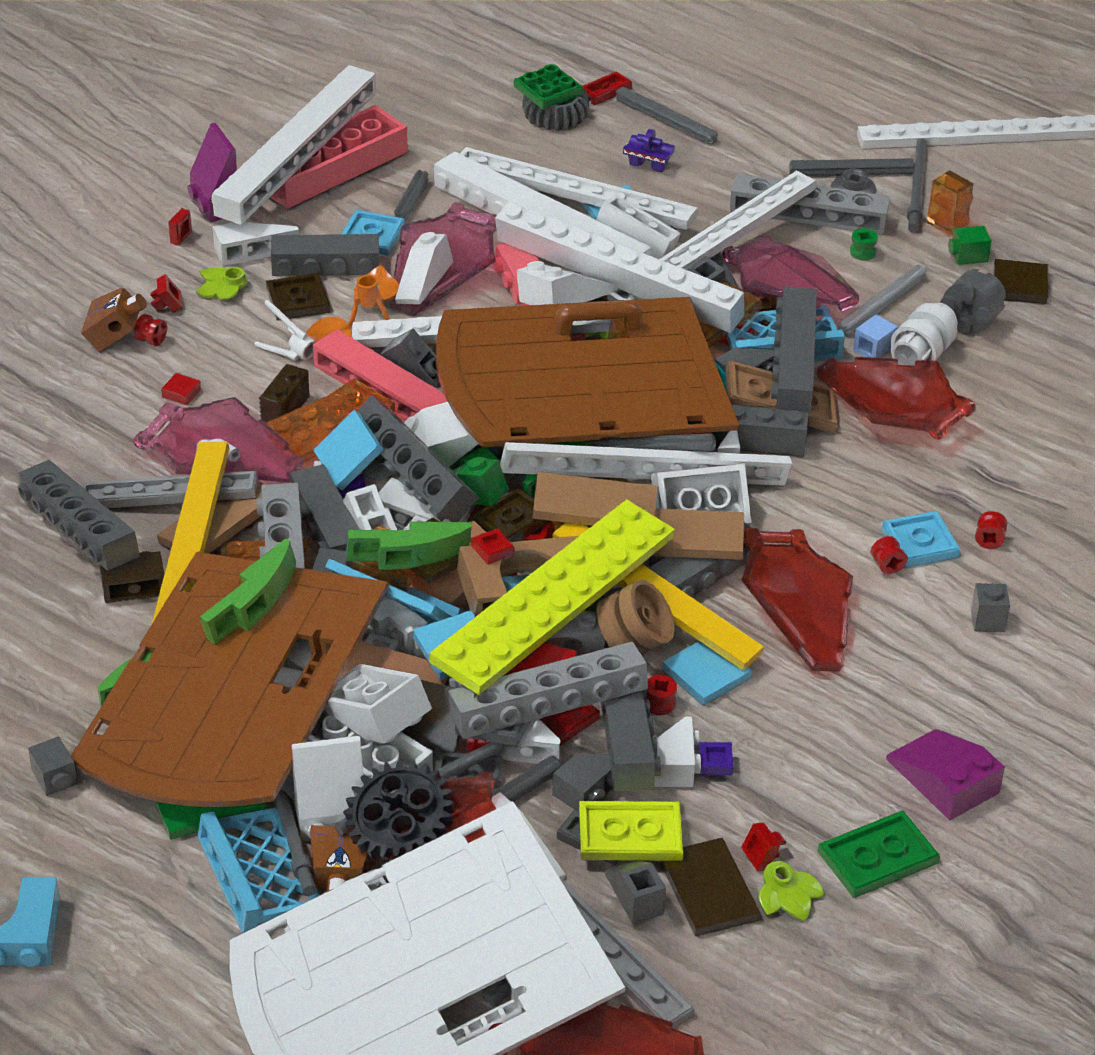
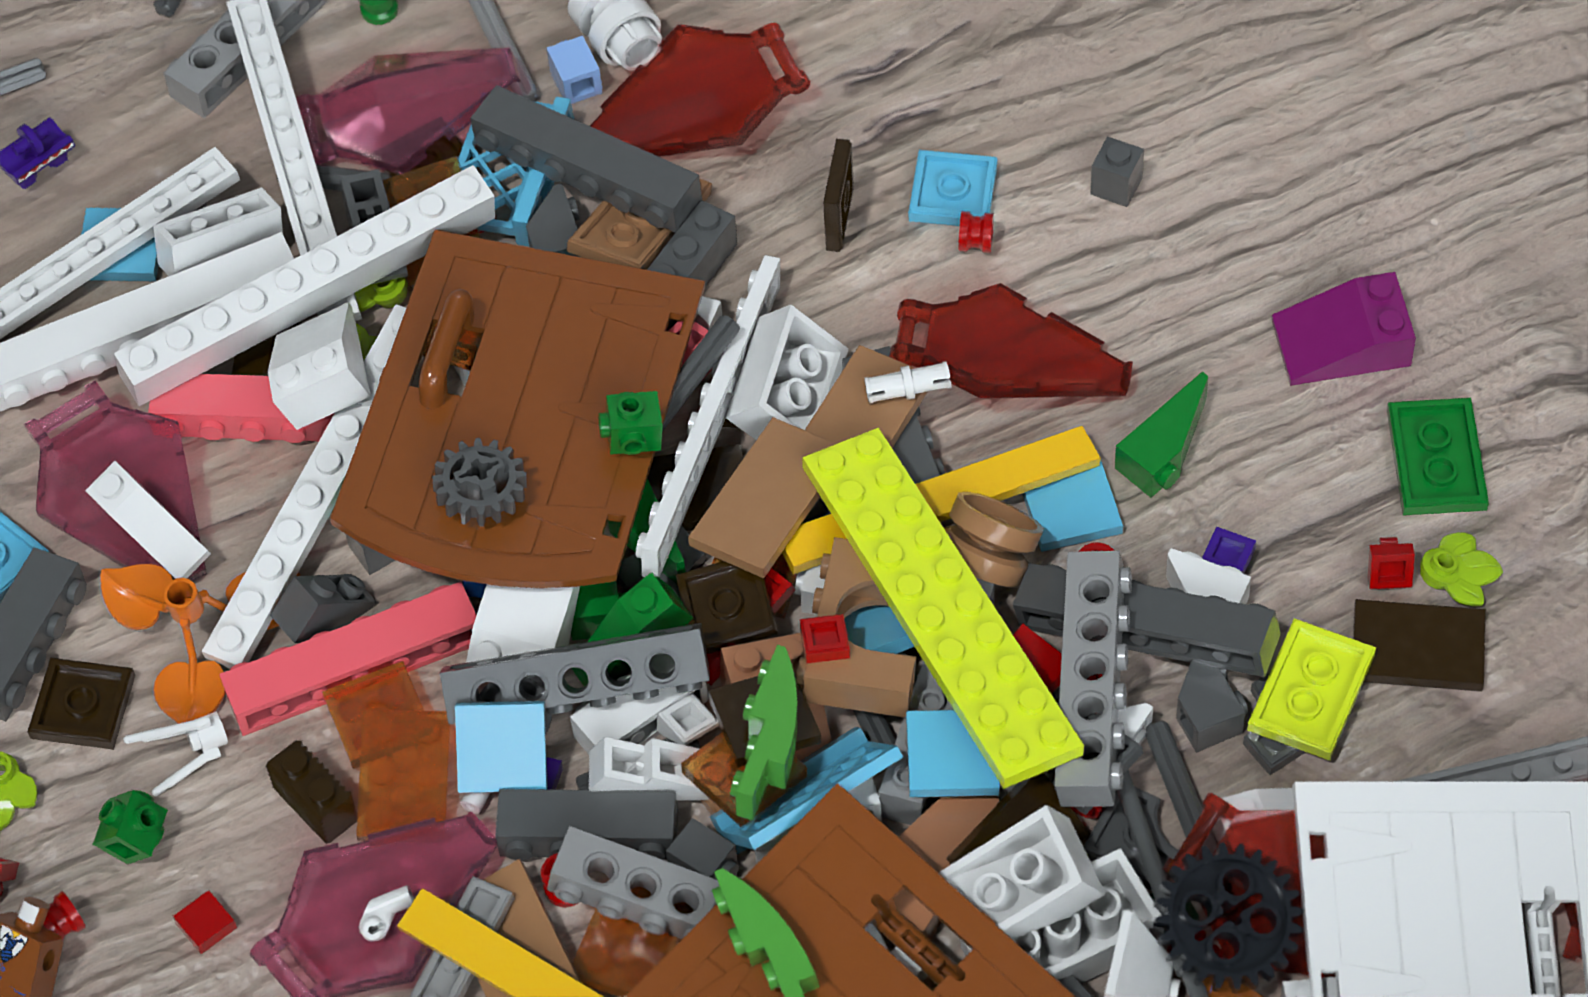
camera: 60 degrees left, 15 degrees up
(214, 340) = (130, 826): none -> green brick
(504, 355) = (479, 482): none -> dark grey gear
(592, 408) = (632, 422): none -> green brick
(638, 890) = (1404, 716): dark grey slope -> none
(724, 537) = (907, 382): none -> white pin
(791, 698) = (1157, 447): none -> green slope
(861, 474) = (838, 195): none -> dark brown tile
(991, 529) = (984, 111): red wheel -> none

